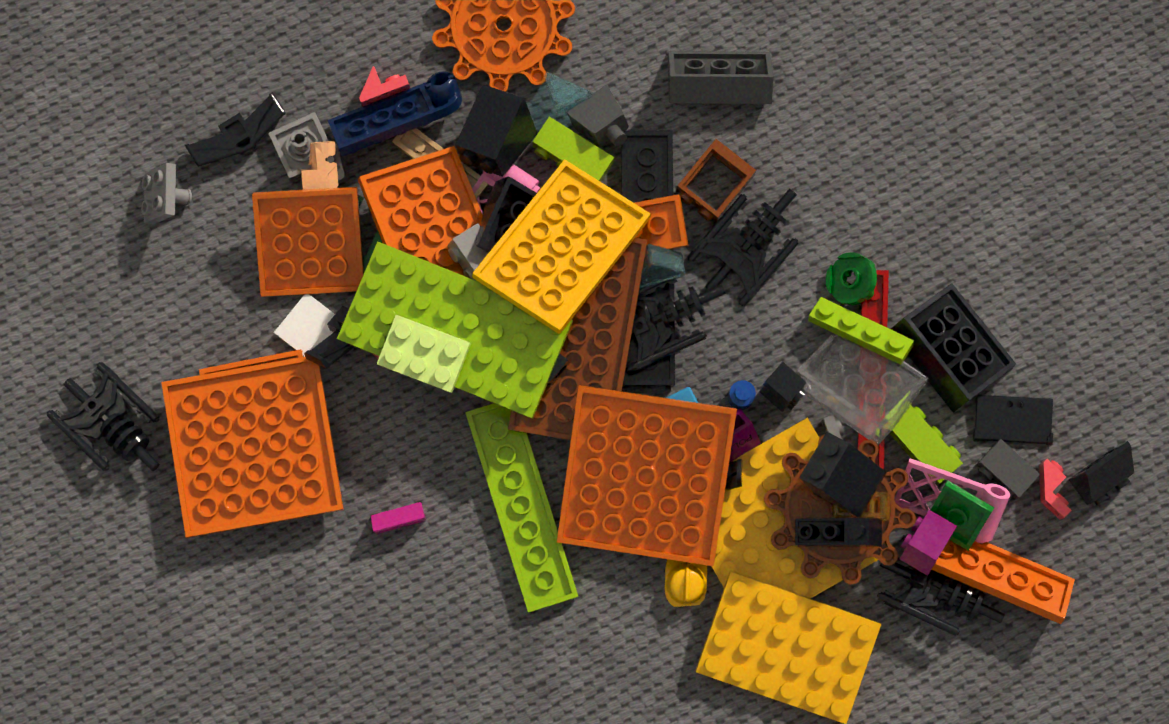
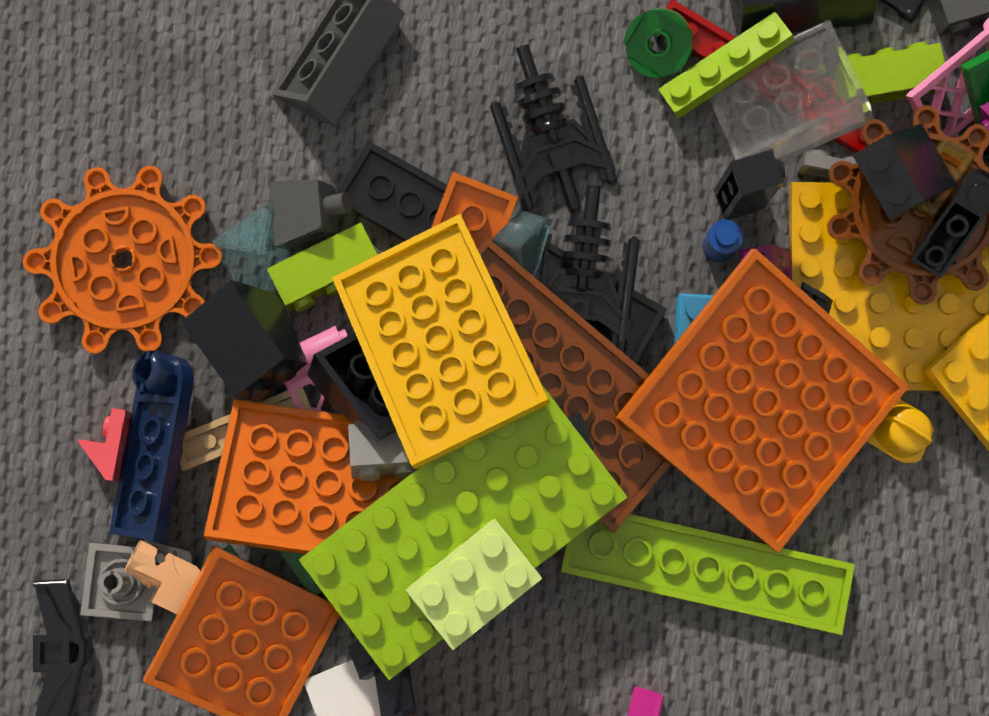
camera: 60 degrees left, 0 degrees up
(732, 162) = (443, 97): dark orange window -> none

